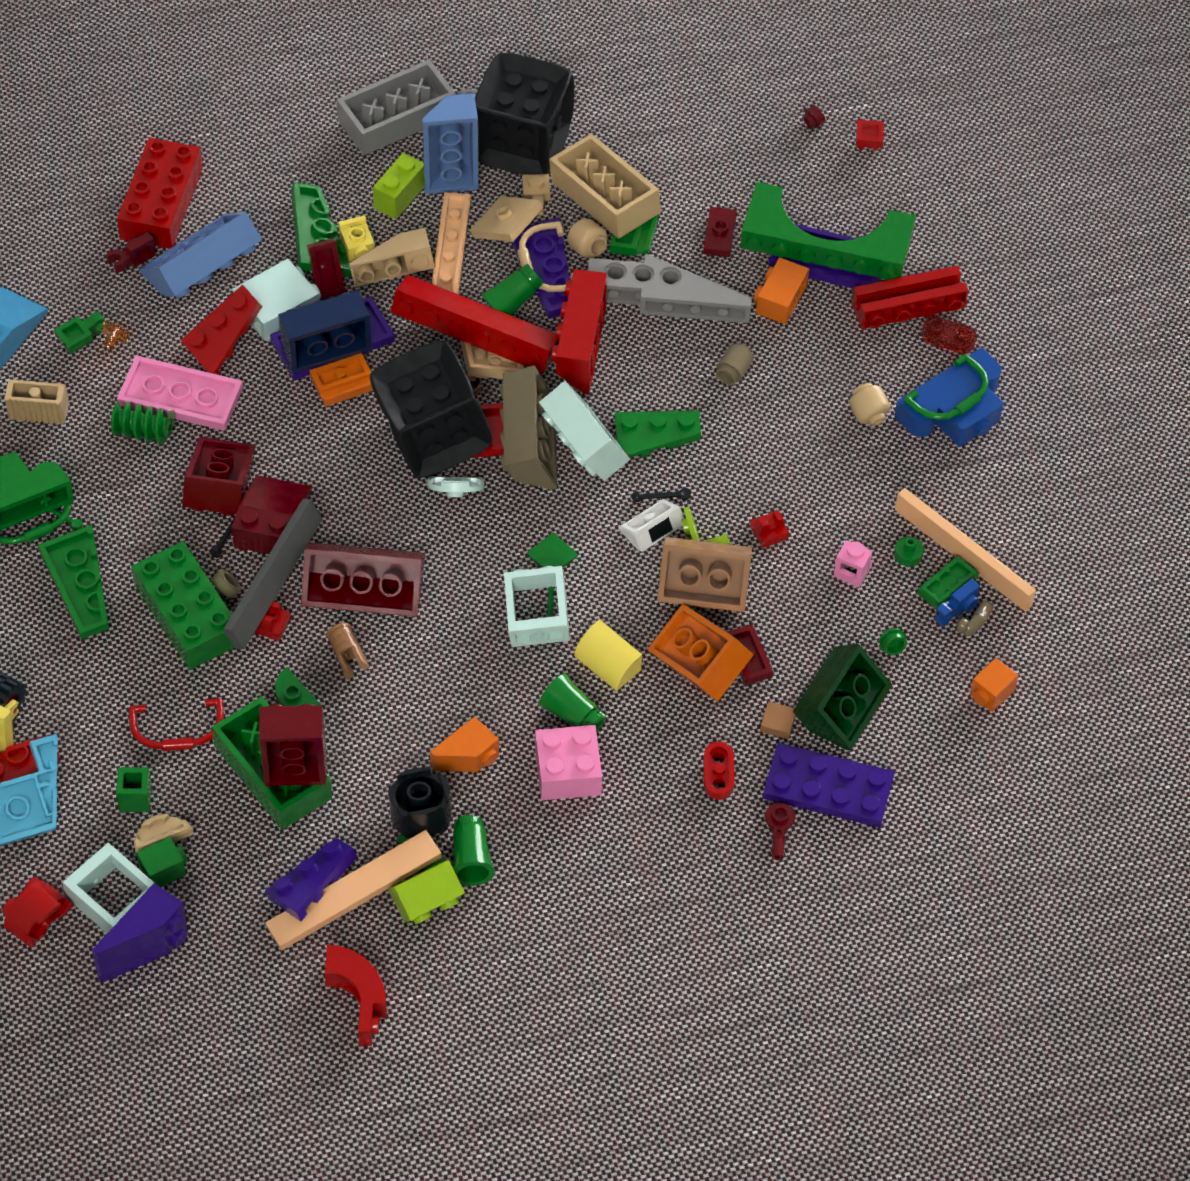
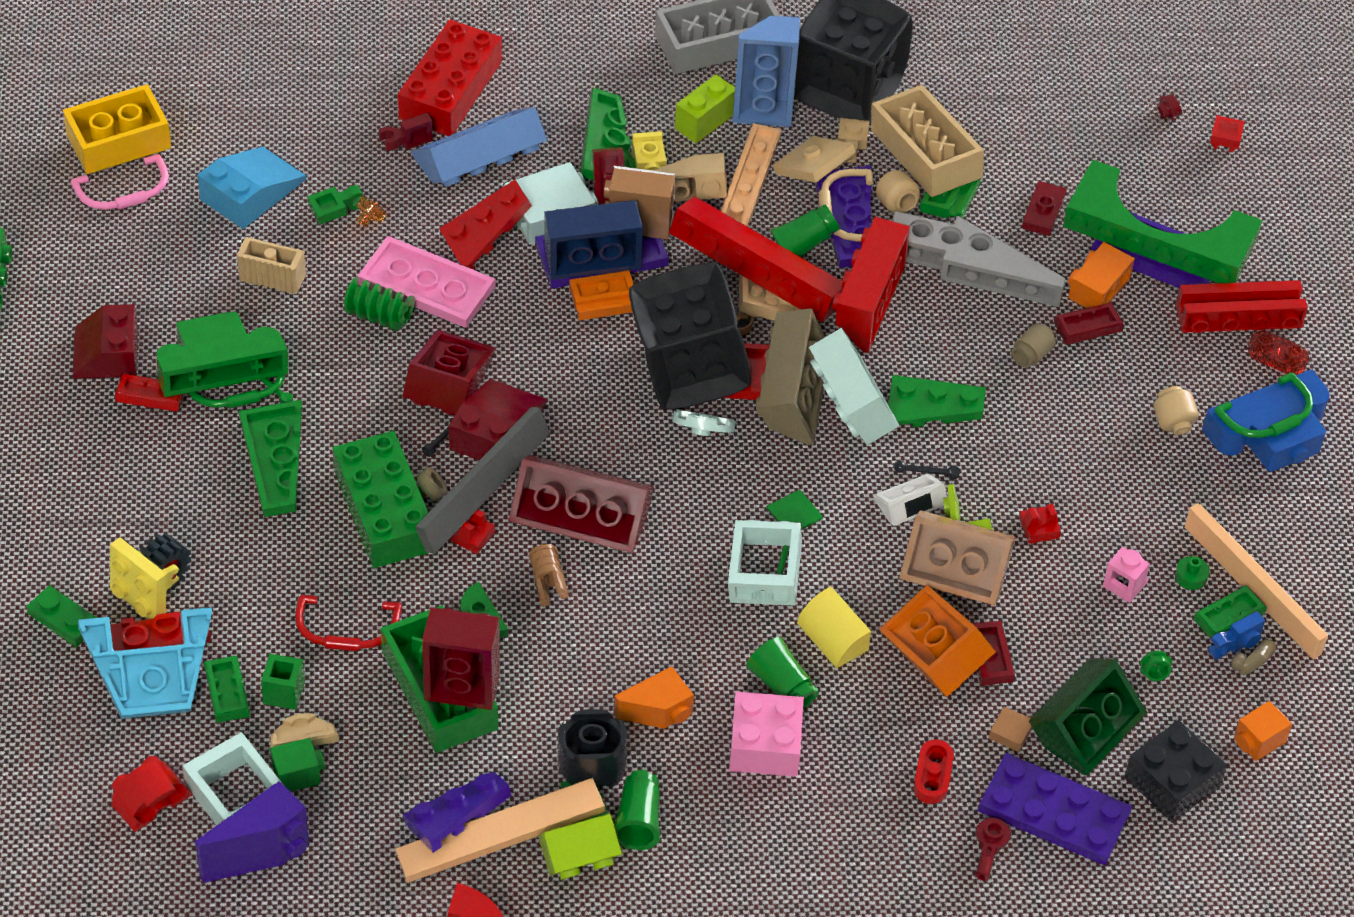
camera: 10 degrees right, 5 degrees down
(84, 804) = (226, 689): none -> green plate
(367, 277) = (652, 194): none -> medium nougat piece
(778, 335) = (1088, 323): none -> dark red plate
(926, 734) = (1175, 771): none -> black brick

